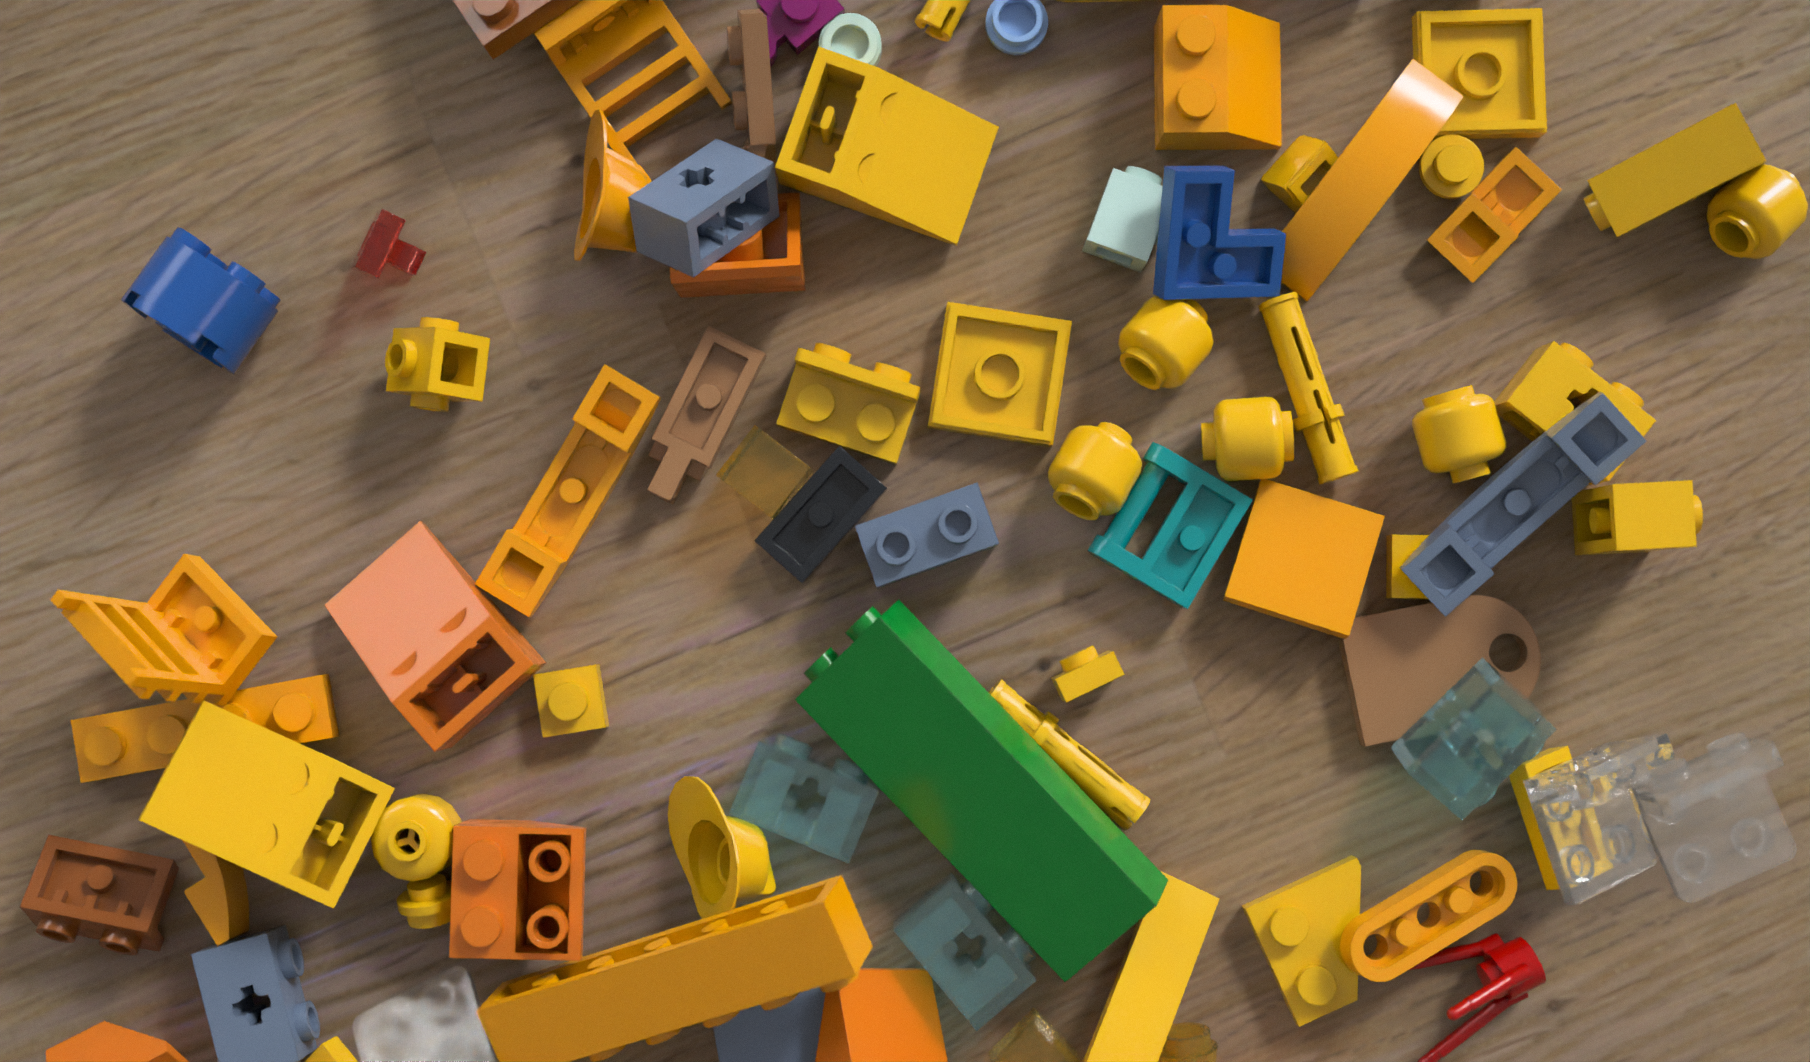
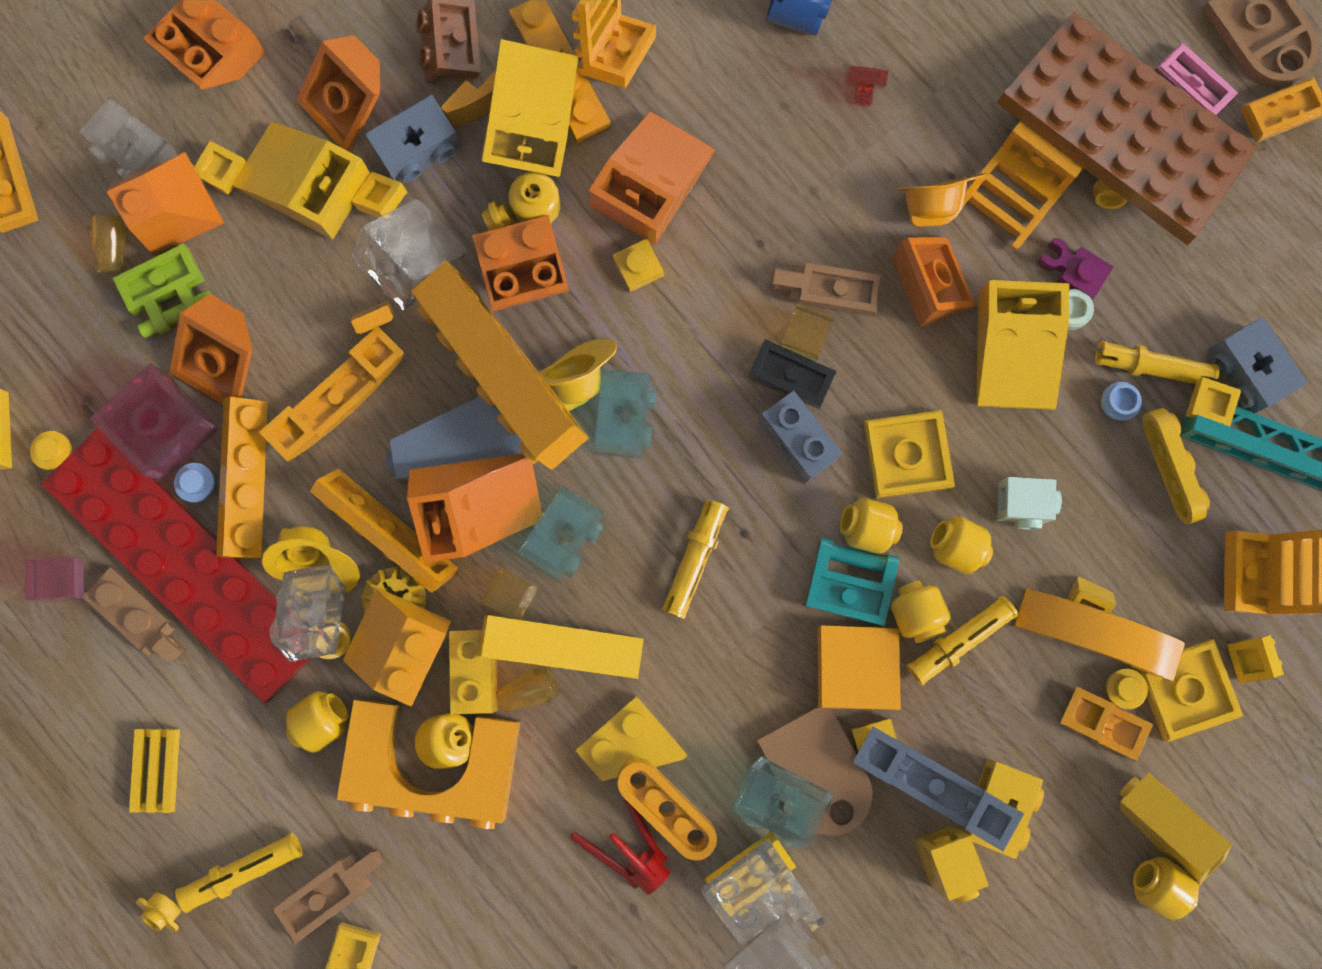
camera: 70 degrees right, 5 degrees down
(436, 364) = (808, 128): yellow brick -> none
(571, 492) = (759, 229): light orange slope -> none
(704, 207) = (952, 248): sand blue brick -> none
(754, 105) = (1019, 261): medium nougat hinge -> none
(849, 403) = (863, 371): yellow bracket -> none
(981, 789) = (661, 512): green brick -> none
(1085, 672) = (748, 556): yellow plate -> none
(1198, 250) = (1024, 544): blue plate -> none
(1216, 79) = (1130, 530): light orange slope -> none
(1459, 433) = (966, 740): yellow head -> none

